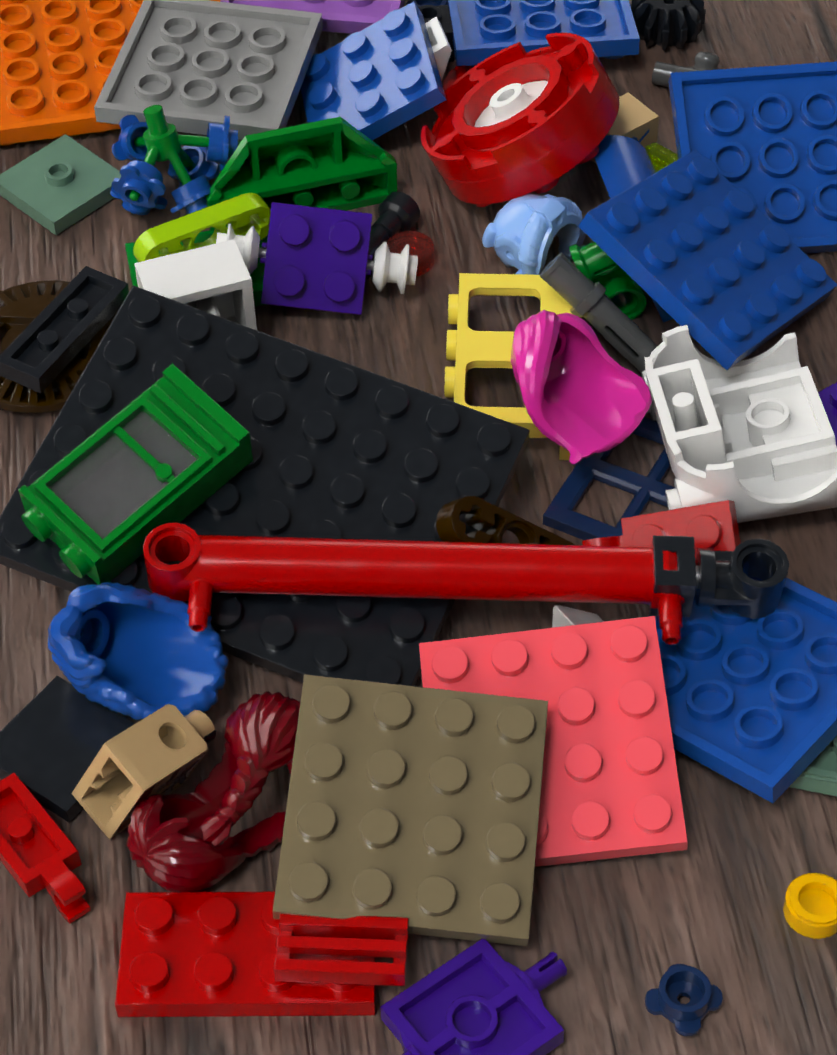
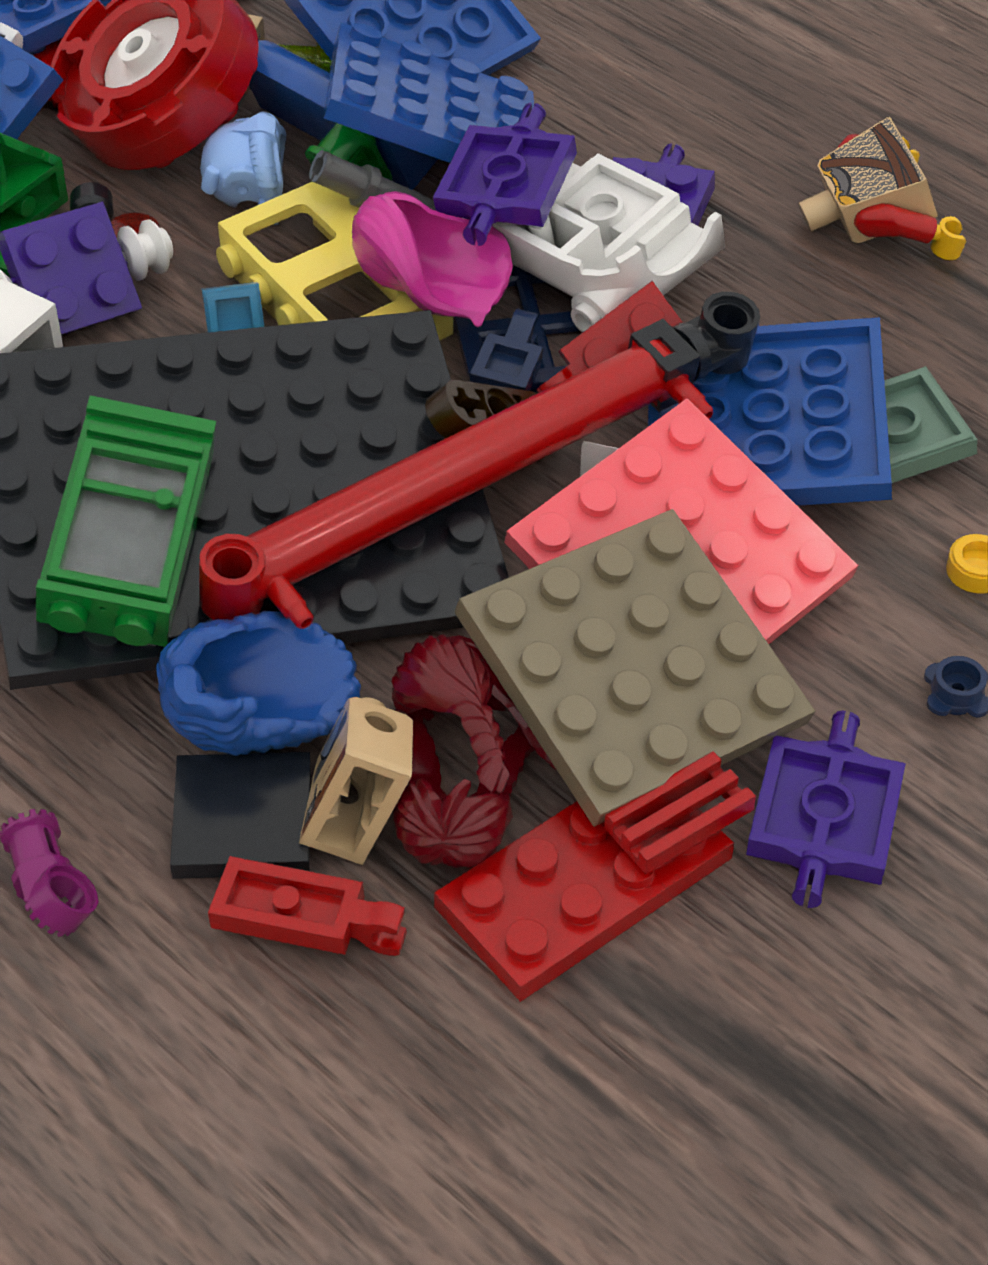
camera: 40 degrees left, 0 degrees up
(415, 354) = (233, 307): none -> dark azure tile
(582, 508) = (510, 359): none -> dark blue plate
(683, 346) = (505, 175): none -> dark purple plate

